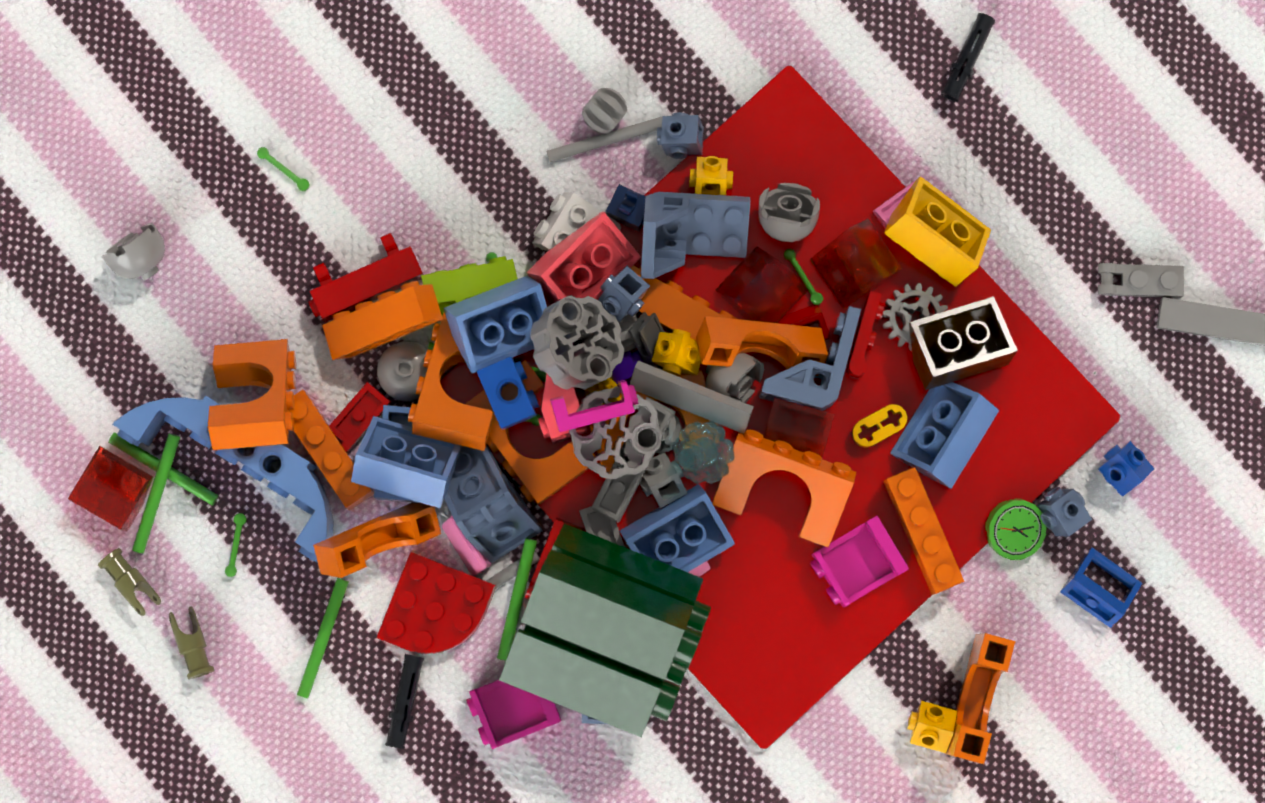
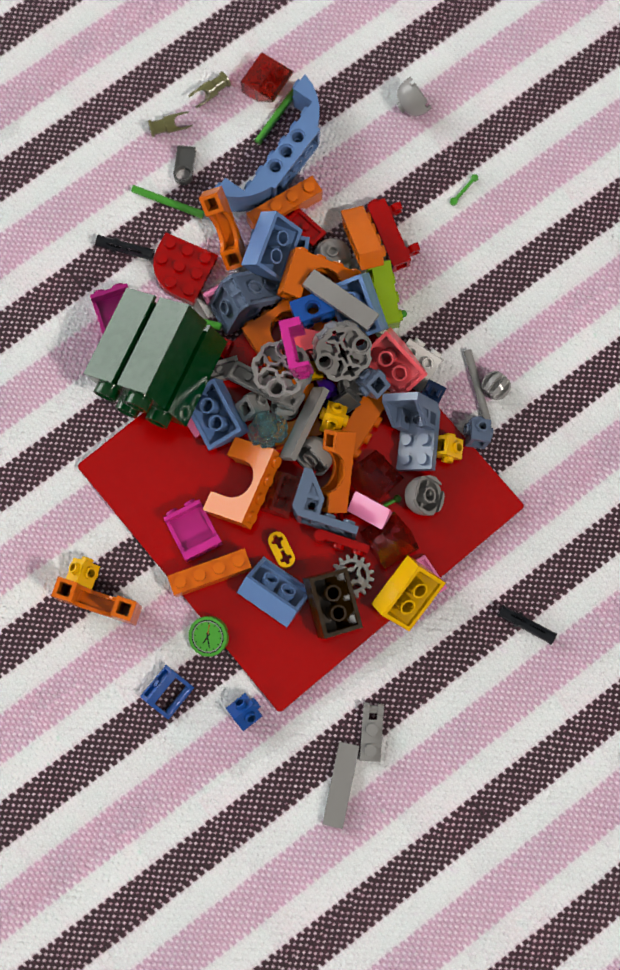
camera: 90 degrees right, 5 degrees down
(156, 493) = (263, 106): bright green bar -> none
(240, 520) = (244, 156): bright green hinge -> none
(251, 615) = (184, 161): none -> dark grey piece
(266, 418) = (303, 163): orange arch -> none
(497, 347) = (340, 300): none -> light grey tile
(817, 293) = (369, 510): none -> bright pink slope
(1064, 511) = (218, 668): sand blue brick -> none

